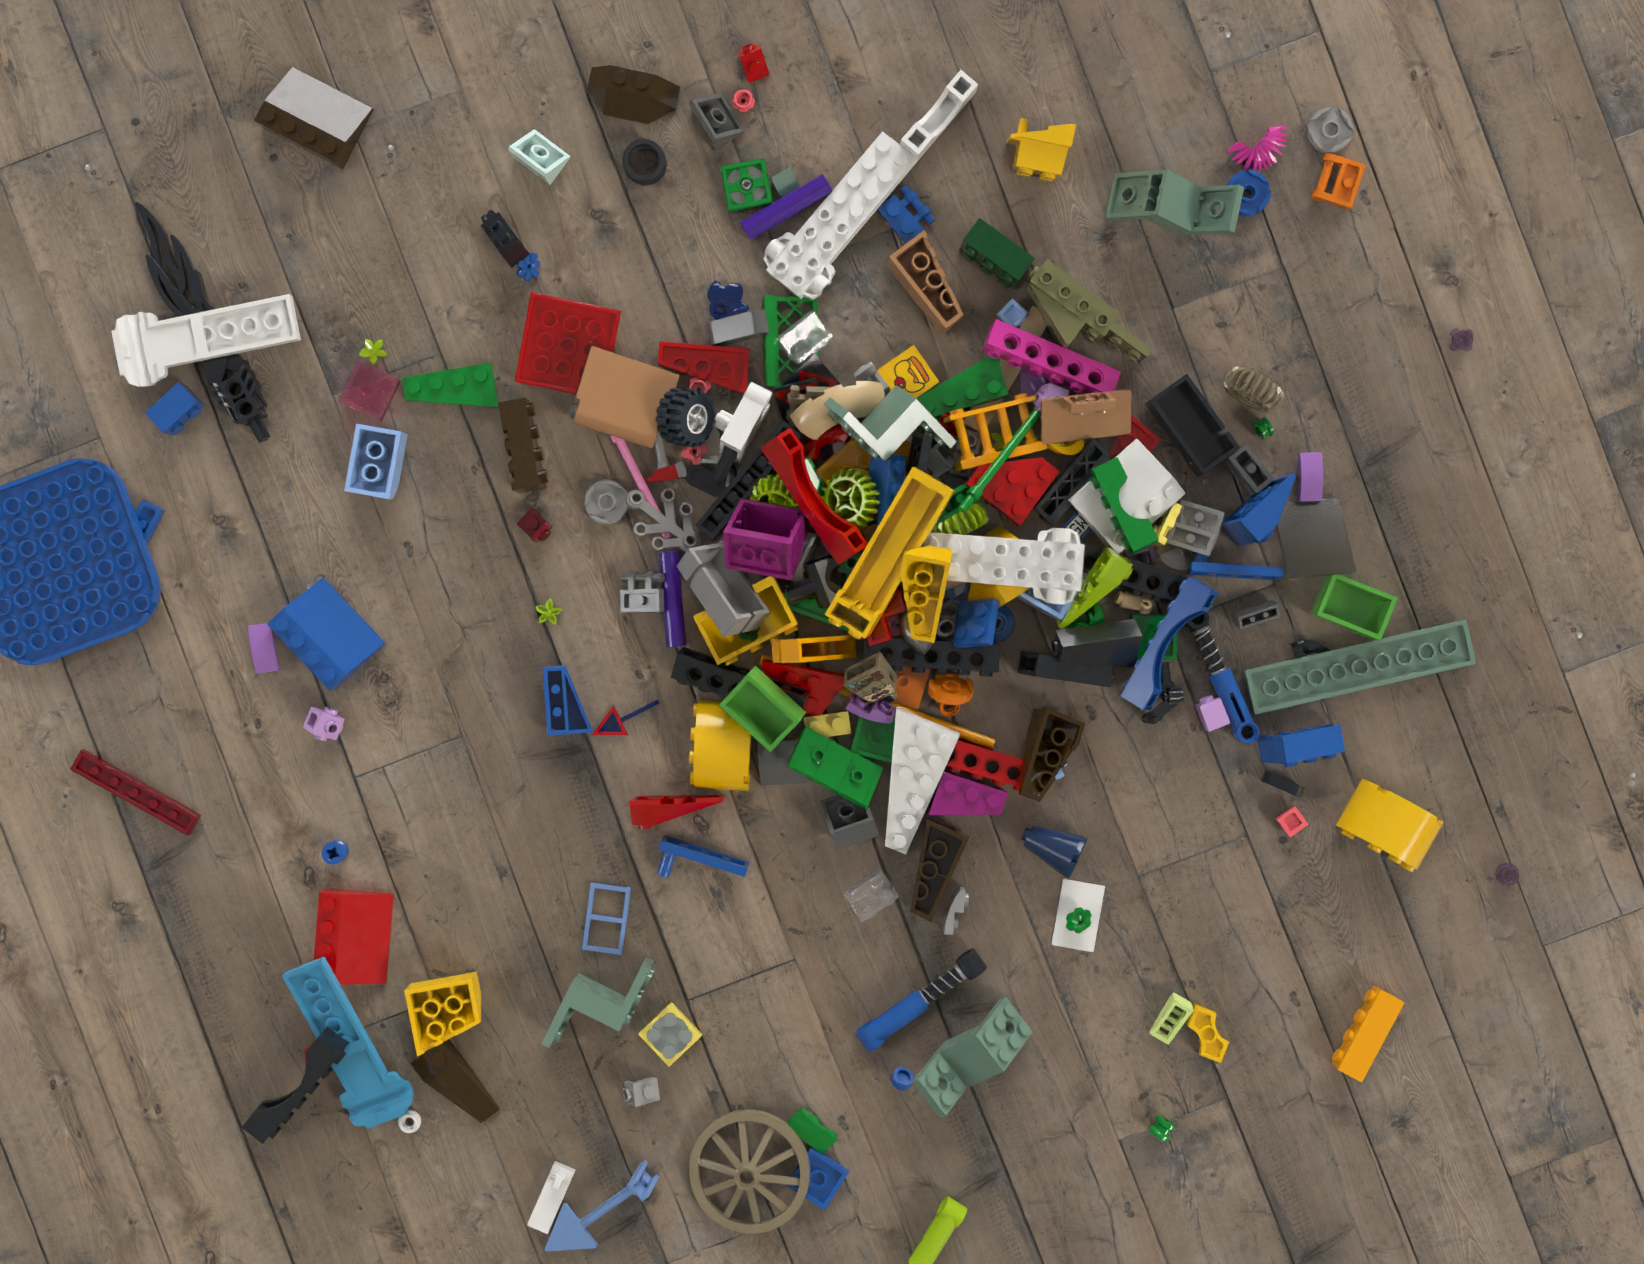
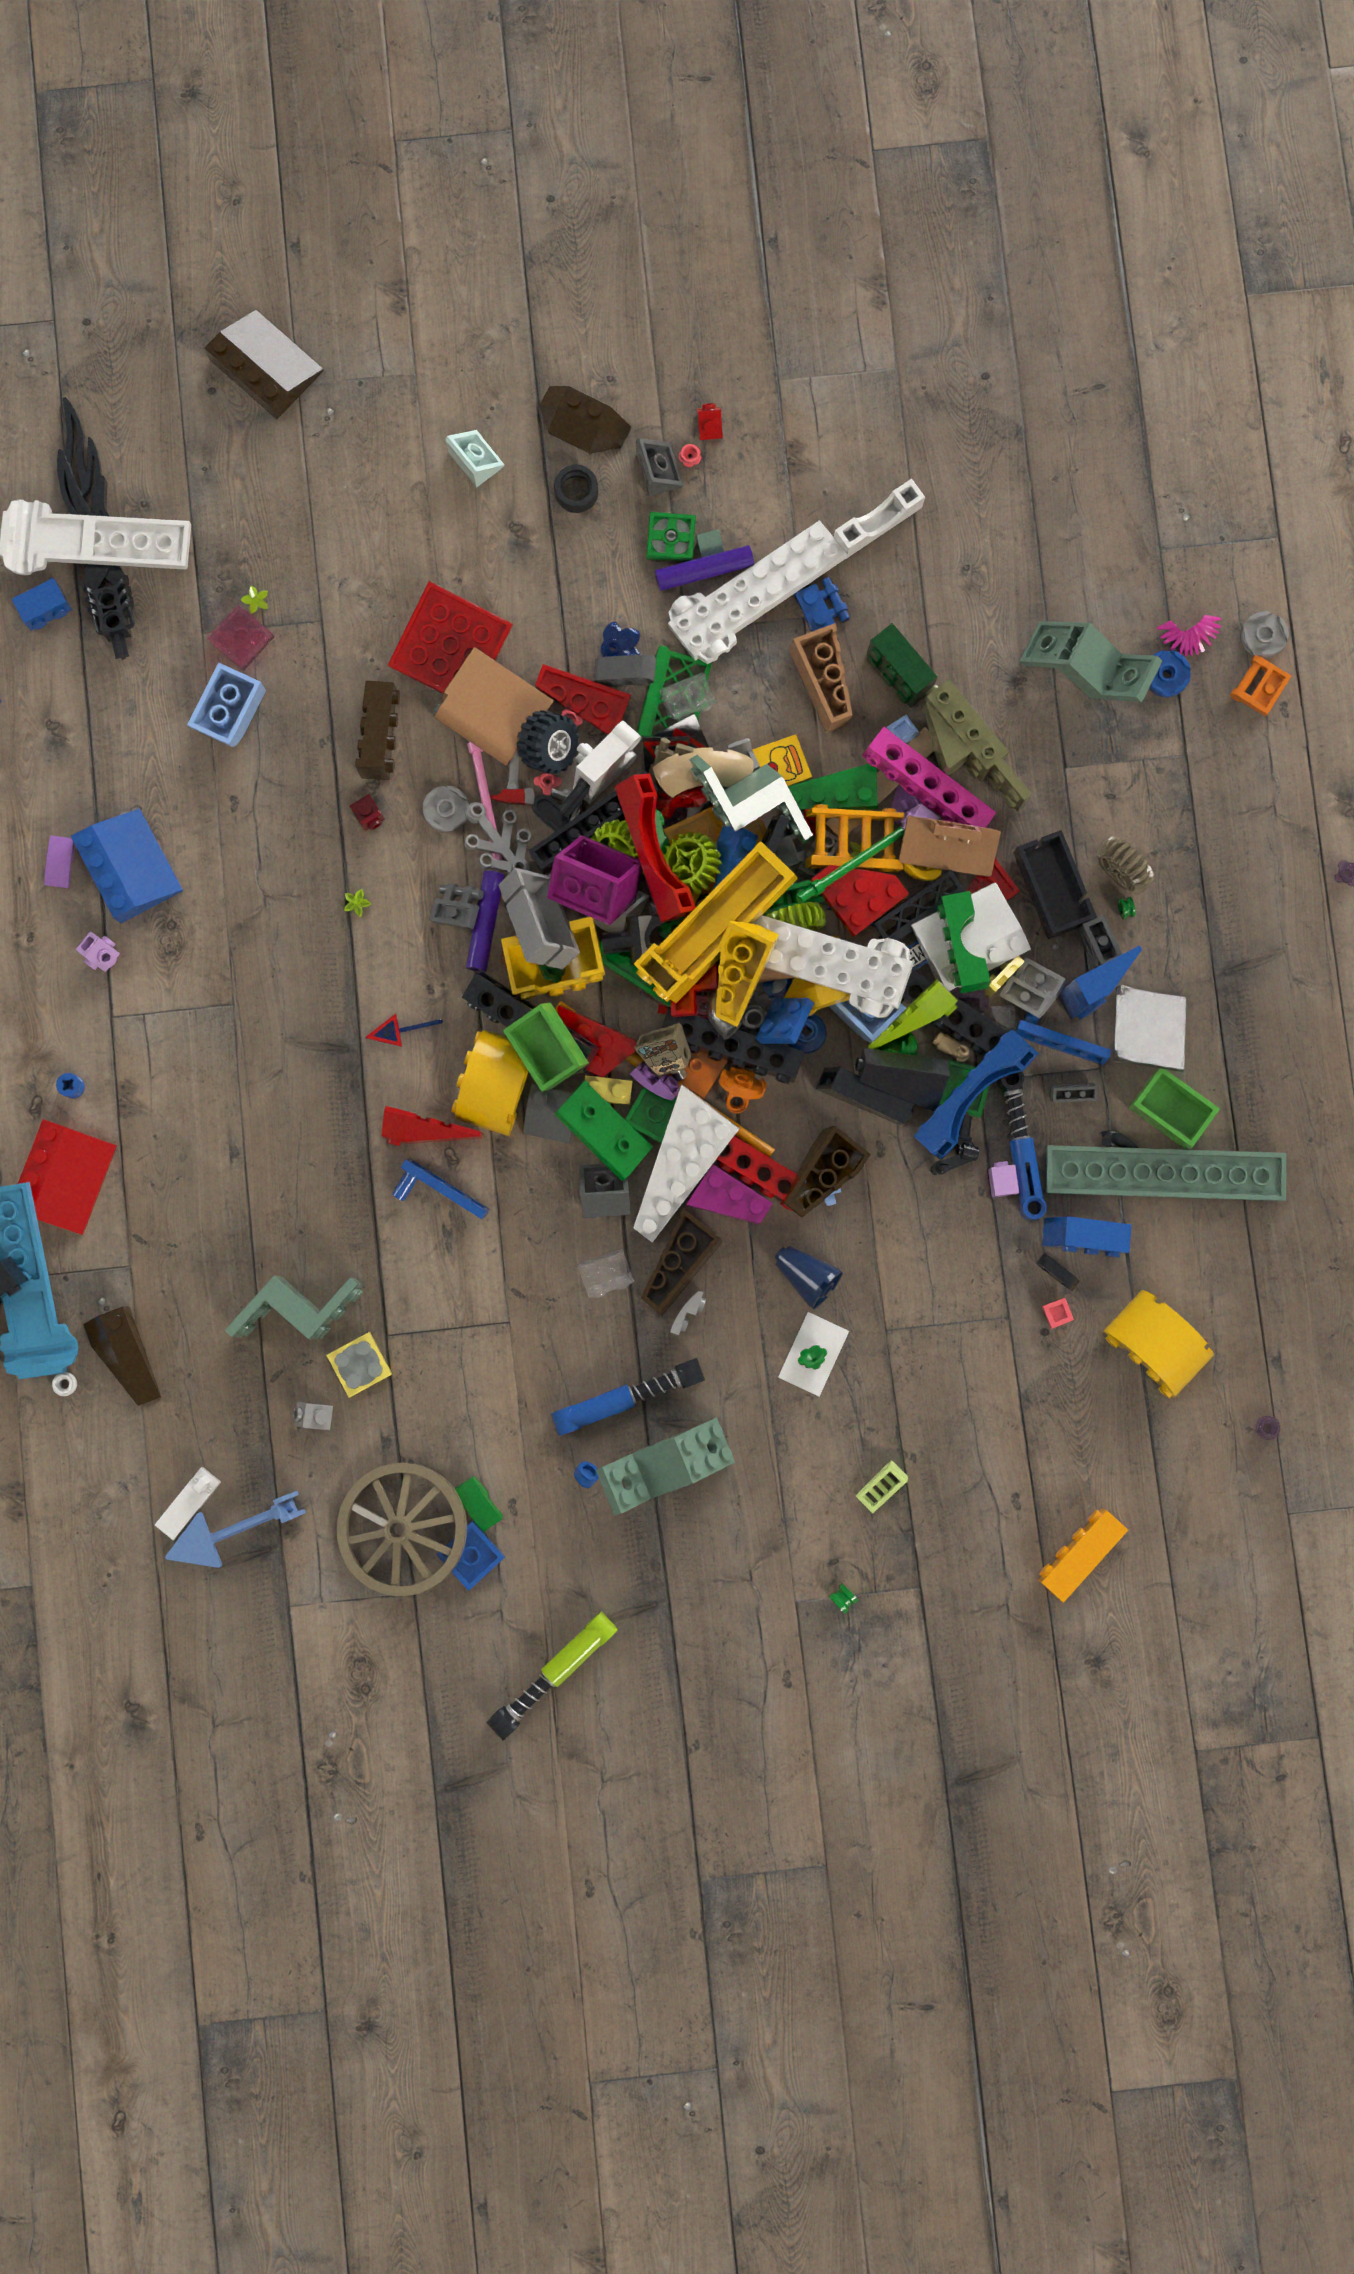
camera: 10 degrees right, 5 degrees down
(442, 1008) = (133, 1273): yellow wedge -> none
(458, 386) = (326, 656): green wing -> none
(503, 238) = (417, 524): black hinge -> none
(527, 267) = (432, 557): blue plant -> none
(562, 703) = (344, 996): blue wedge -> none
(589, 916) = (311, 1221): medium blue window -> none
(813, 649) = (613, 1003): light orange brick -> none
(1041, 151) = (971, 576): yellow piece -> none
(1211, 1043) = (914, 1500): yellow tile -> none
(1310, 476) = (1162, 968): medium lavender slope -> none

